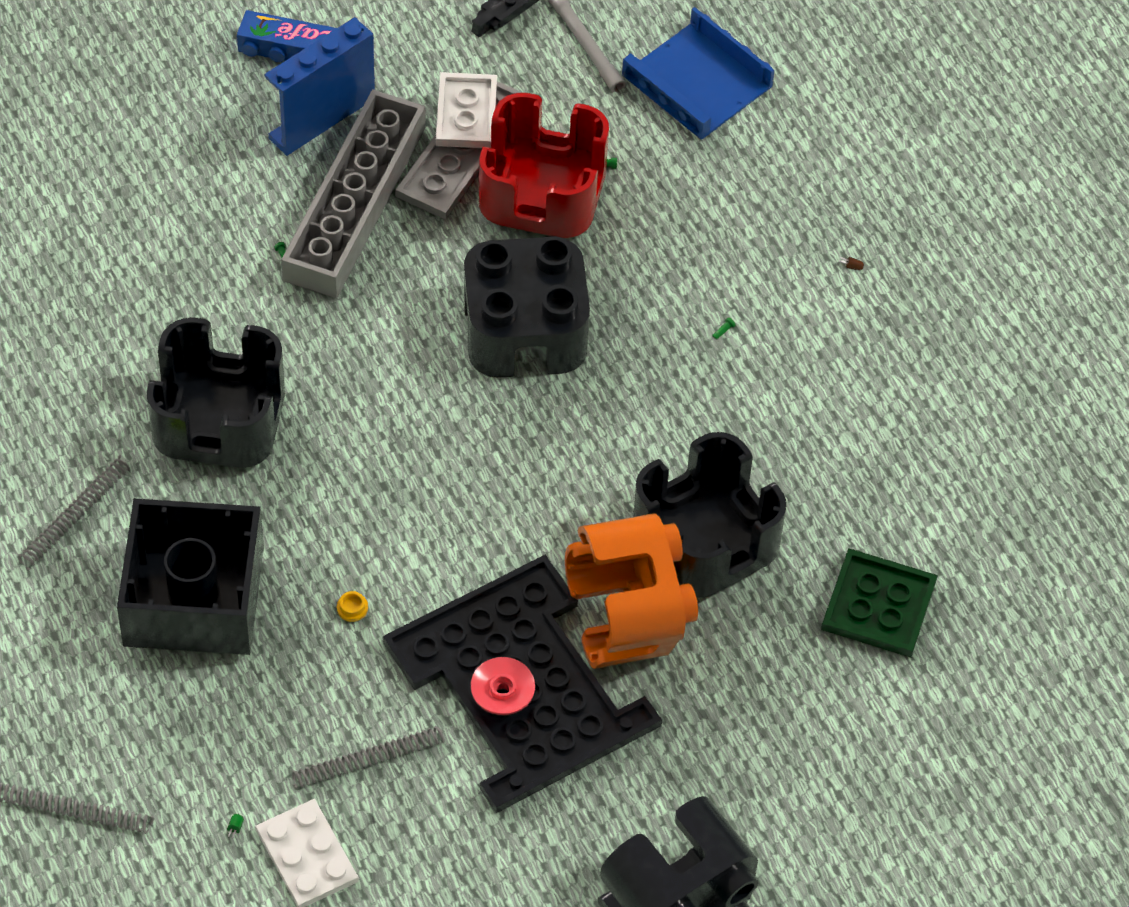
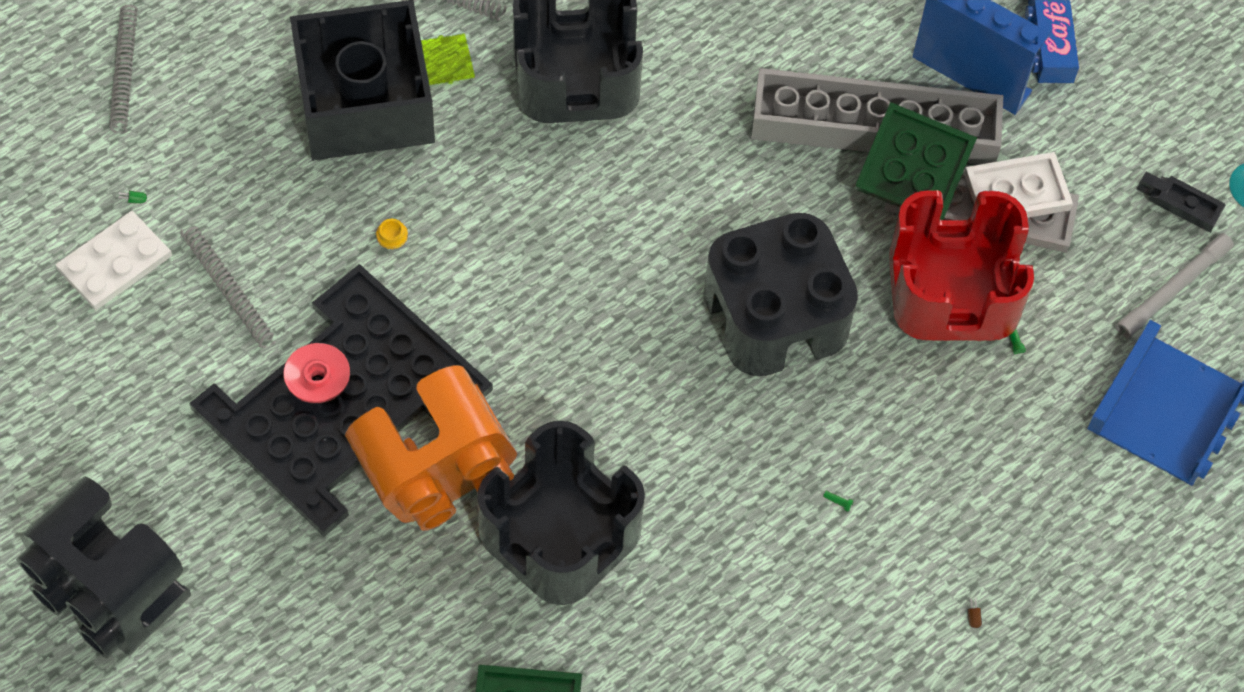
camera: 75 degrees right, 5 degrees up
(423, 170) = (914, 156): none -> dark green plate

